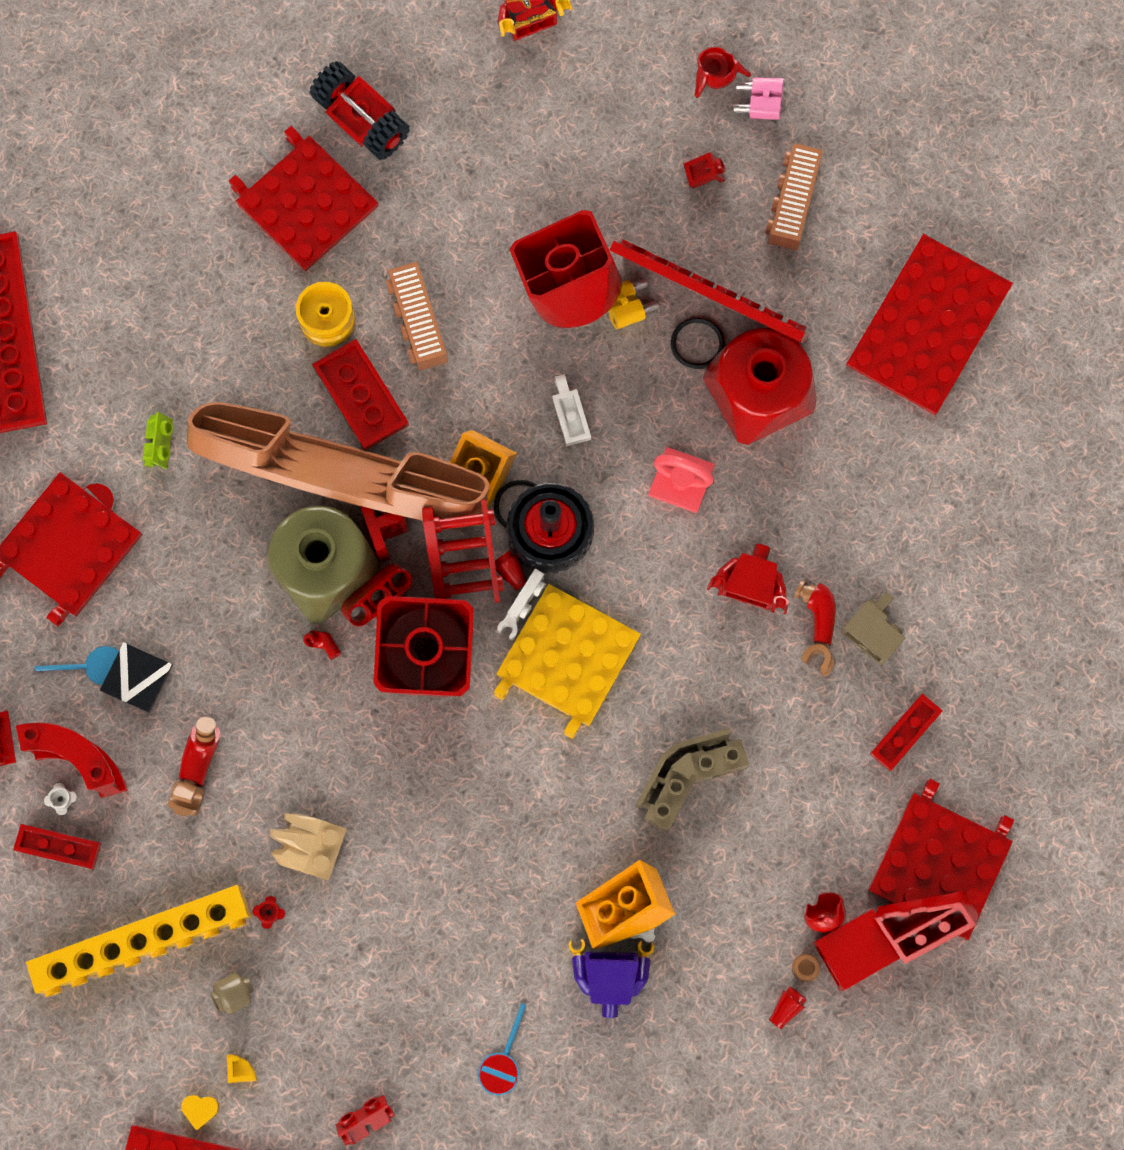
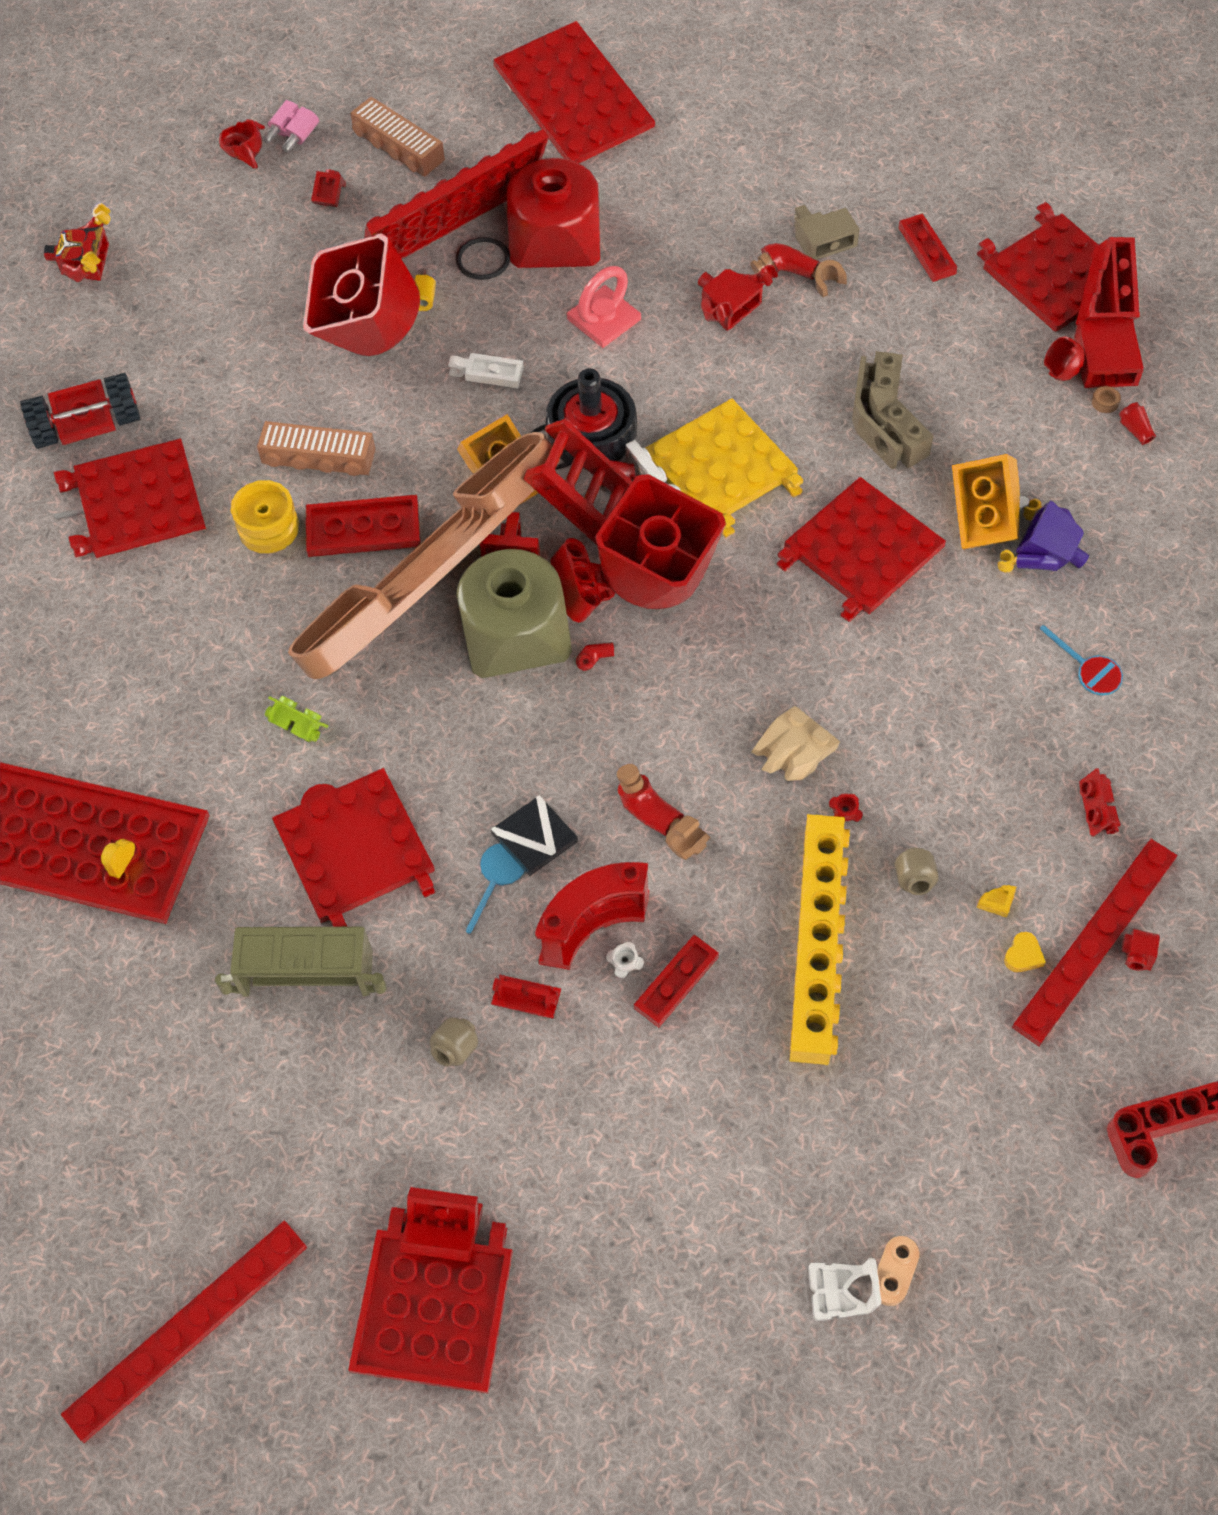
camera: 60 degrees left, 15 degrees down
(536, 816) = (862, 547): none -> red plate

